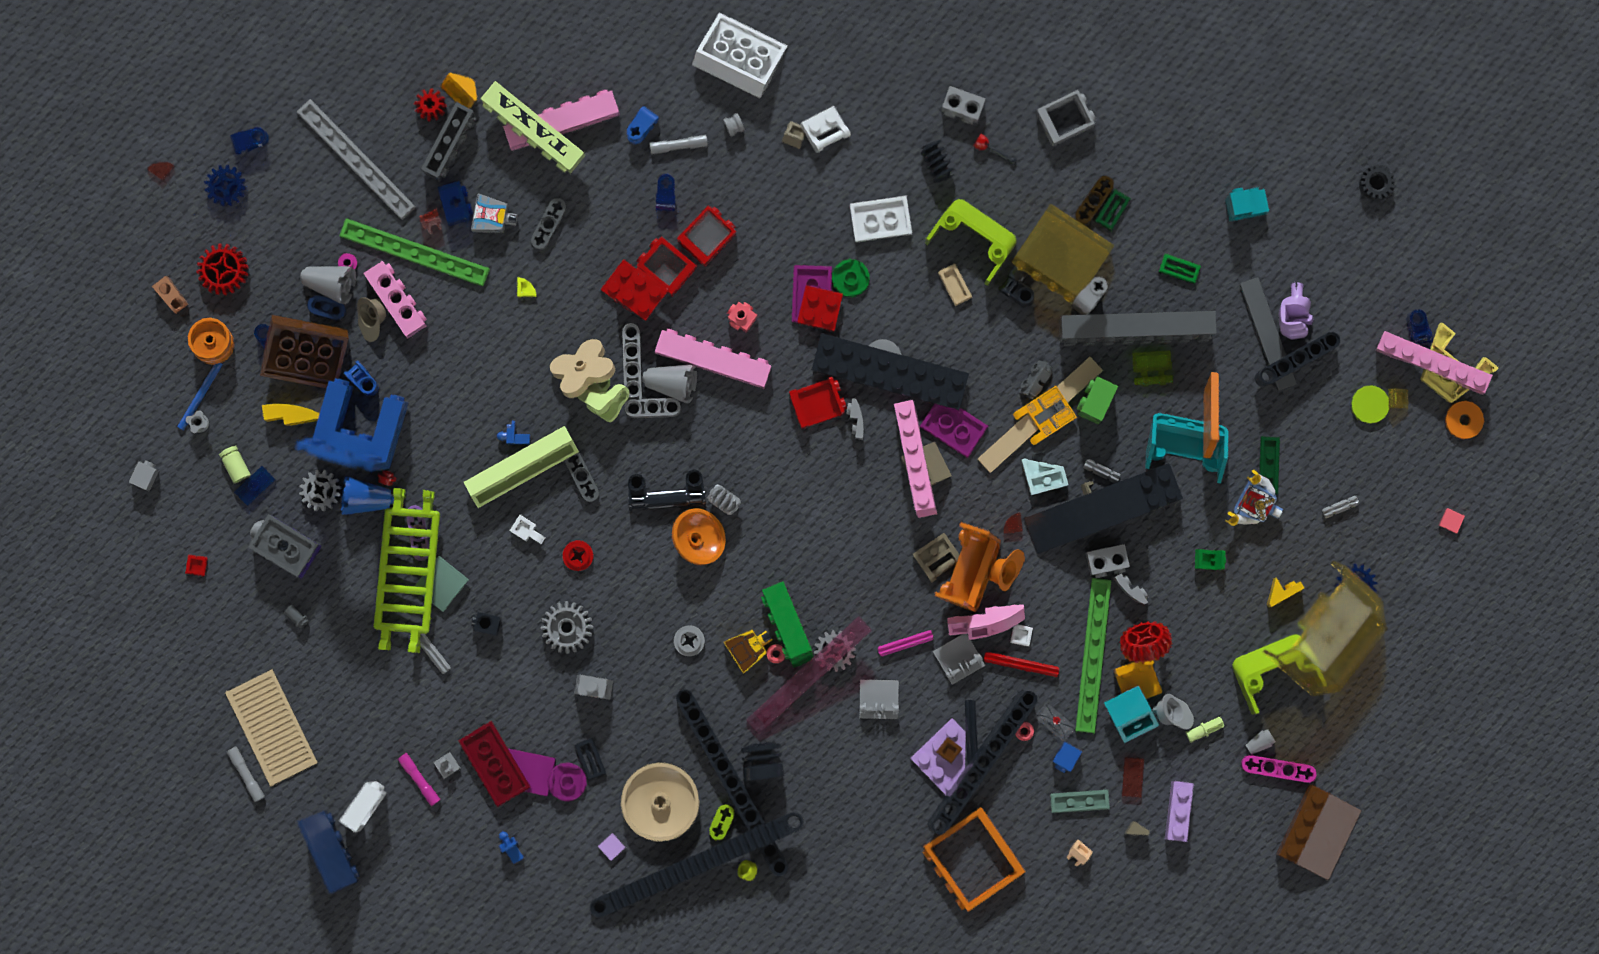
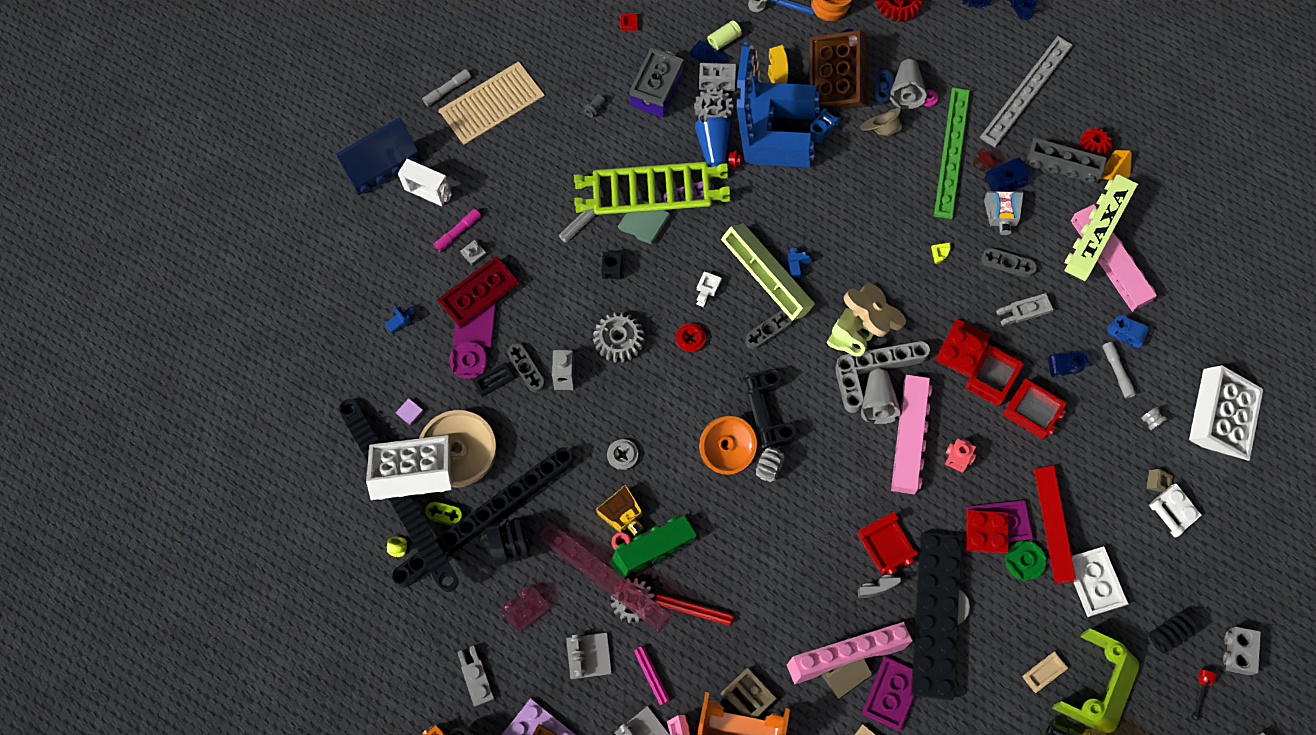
camera: 90 degrees right, 15 degrees down
(287, 481) = (717, 76): none -> light grey brick
(375, 277) = (920, 121): bright pink brick -> none
(594, 715) = (527, 360): none -> dark grey beam
(601, 217) = (1026, 309): none -> light grey hinge
(676, 847) = (409, 467): none -> white slope
(822, 243) = (1055, 525): none -> red slope
(826, 754) = (524, 608): none -> clear pink bracket
(850, 595) = (694, 609): none -> red axle
(884, 807) = (476, 678): none -> light grey hinge

